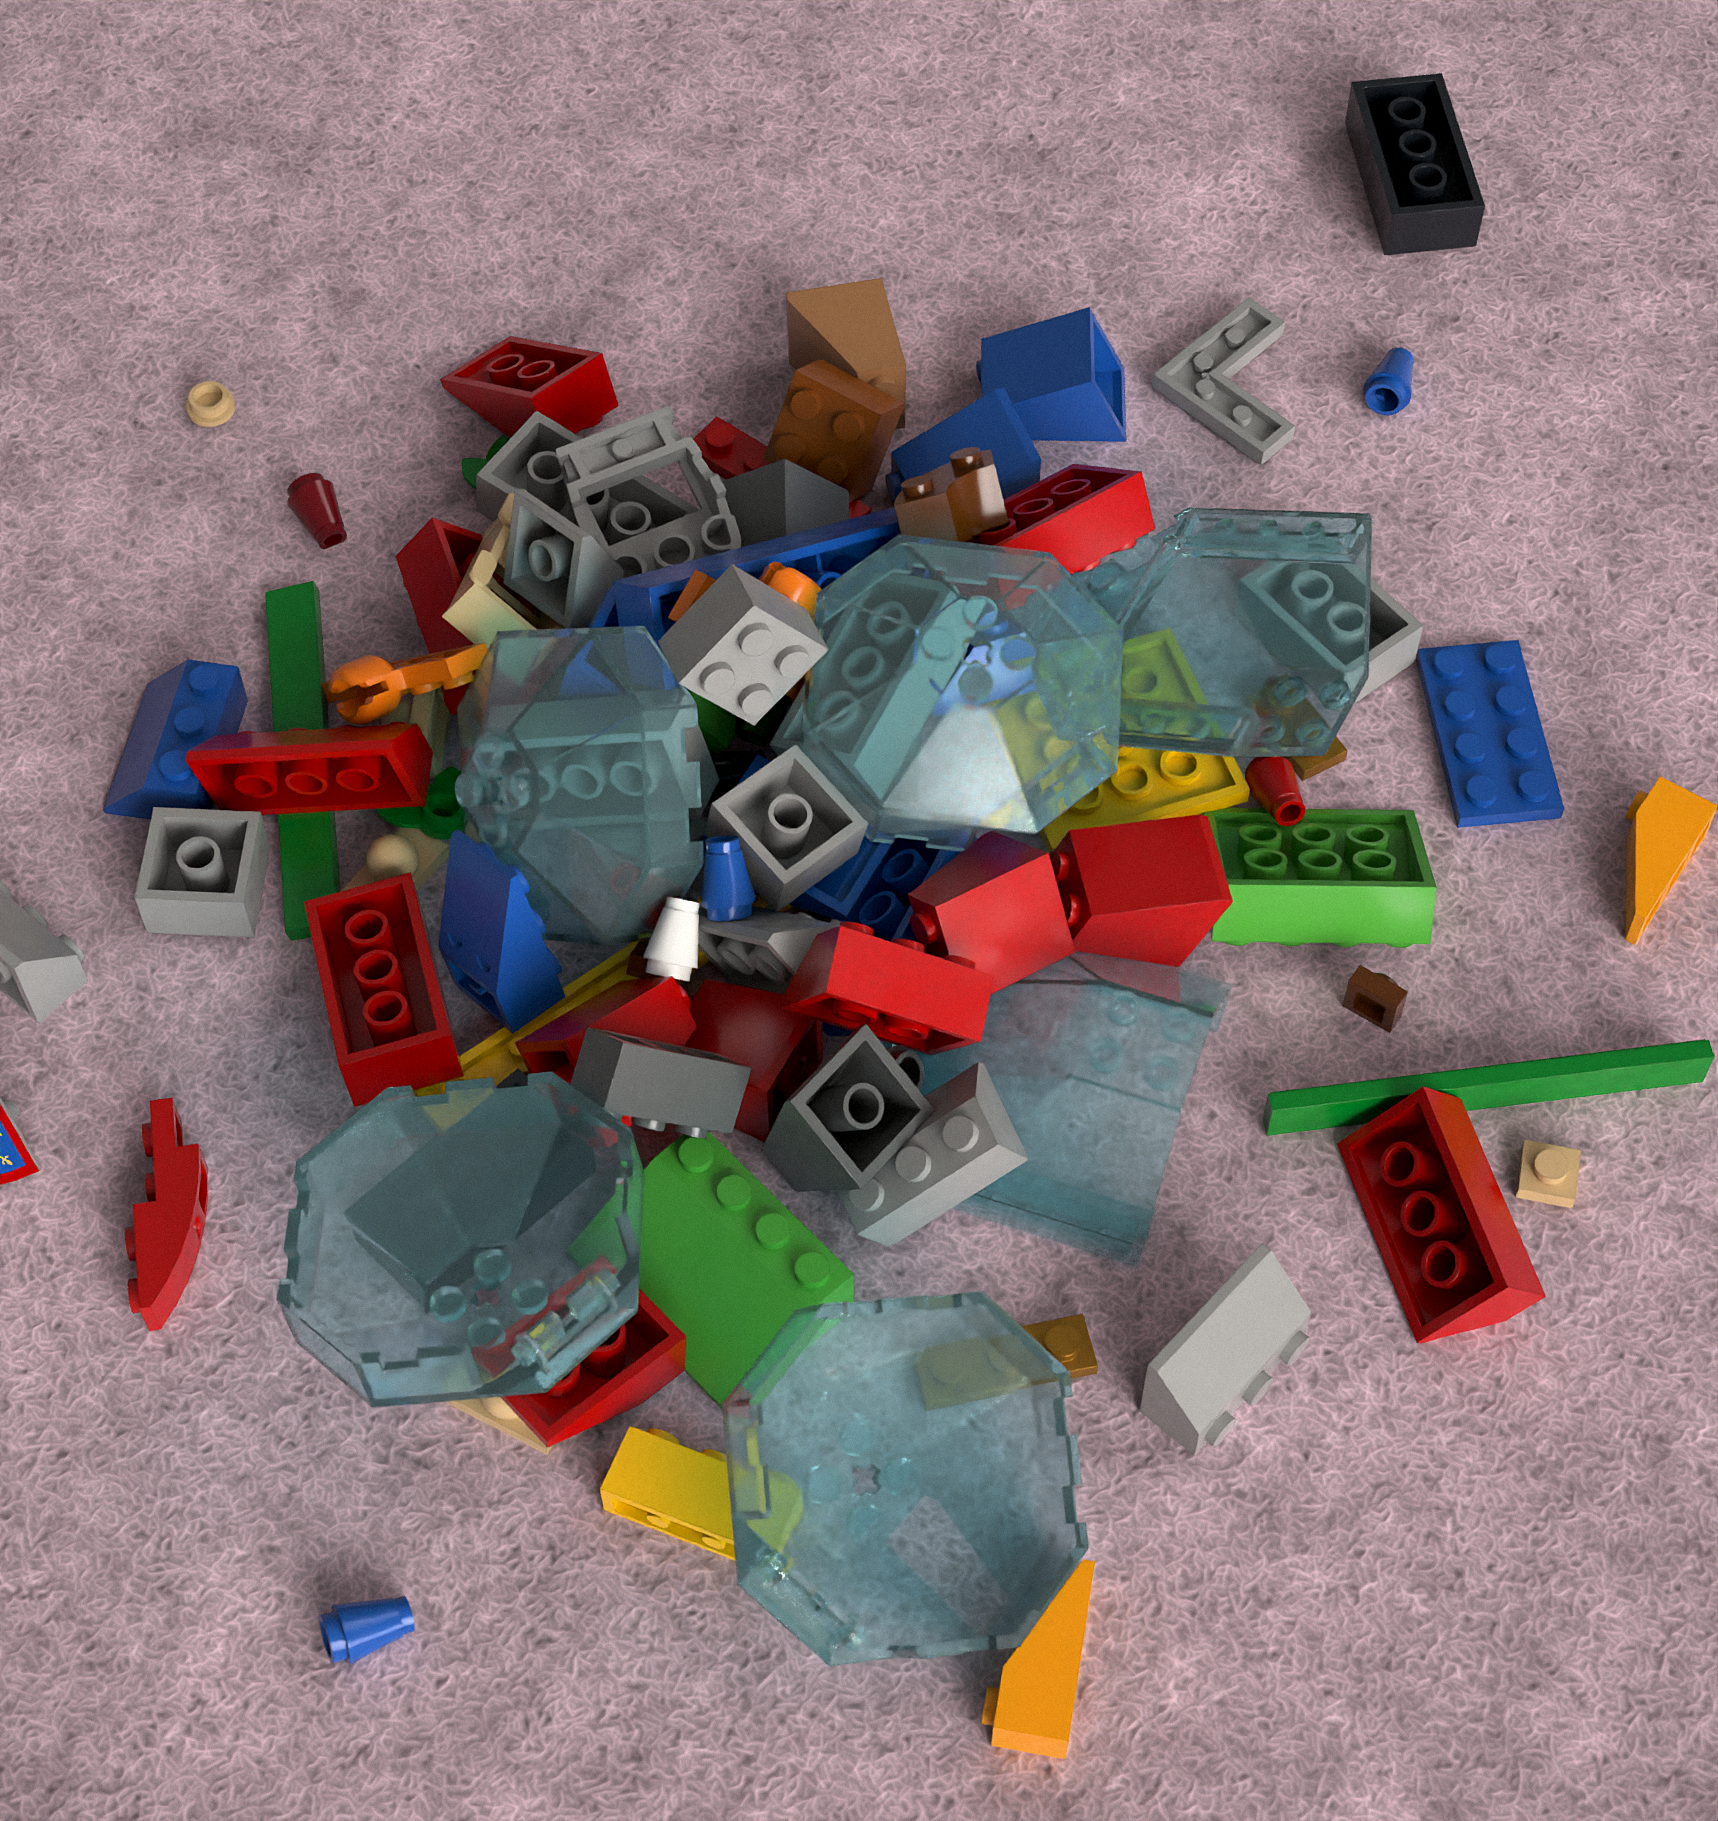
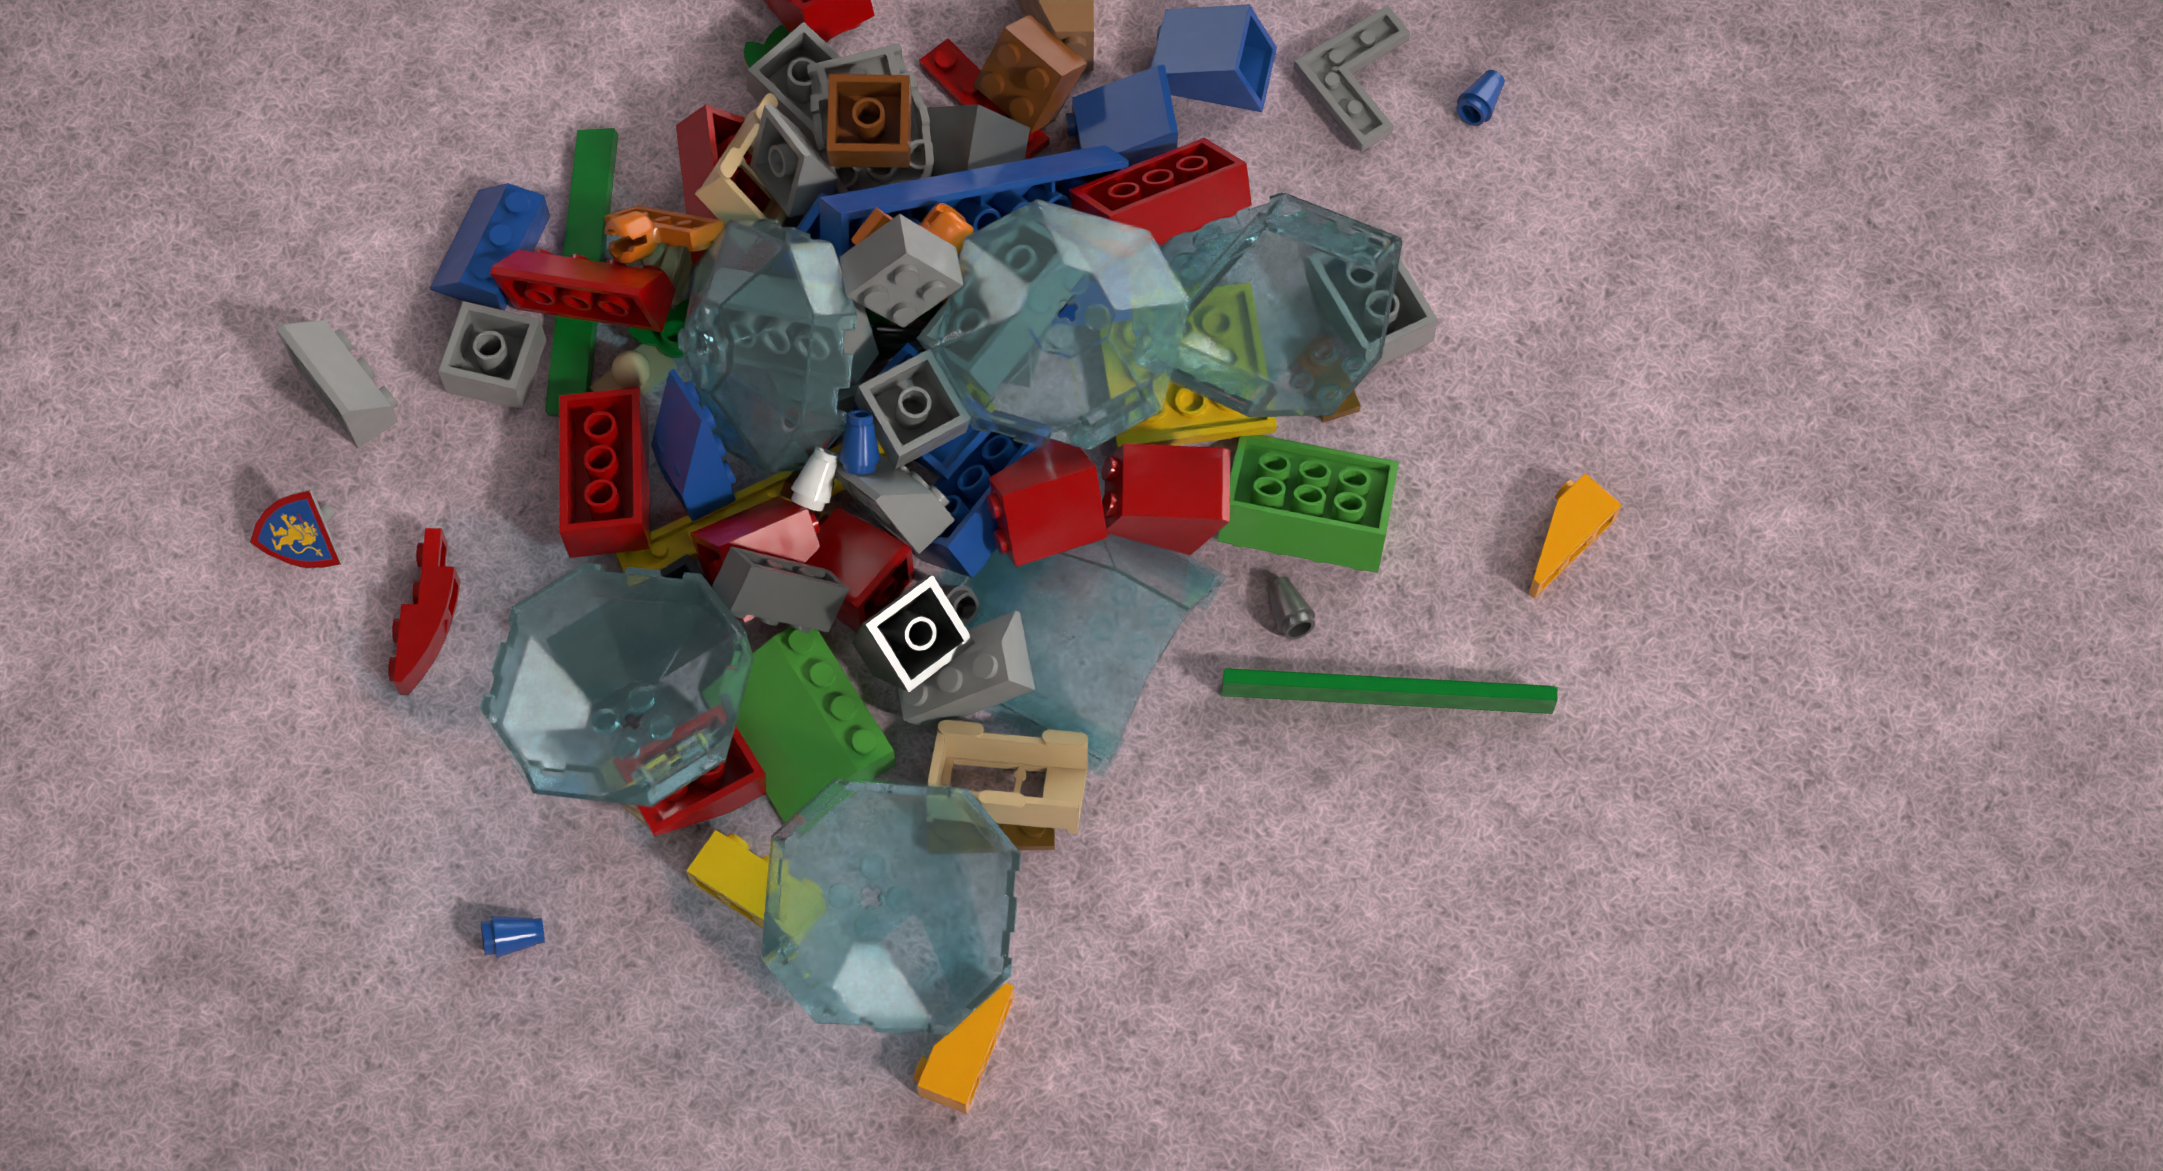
camera: 10 degrees right, 10 degrees up
(317, 508) = (628, 66): dark red cone -> none
(652, 493) = (869, 120): none -> dark orange brick
(892, 988) = (959, 549): red slope -> none
(953, 499) = (1092, 168): reddish brown brick -> none
(1073, 1244) = (1058, 754): none -> tan piece
(1226, 1353) = (1144, 855): light grey slope -> none
(1276, 789) = (1297, 435): red cone -> none
(1329, 1009) = (1290, 609): none -> flat silver cone
(1375, 998) = (1328, 607): reddish brown plate -> none
(1439, 1217) = (1326, 781): red slope -> none
(1489, 734) = (1473, 409): blue plate -> none
(1548, 1173) = (1416, 763): tan plate -> none

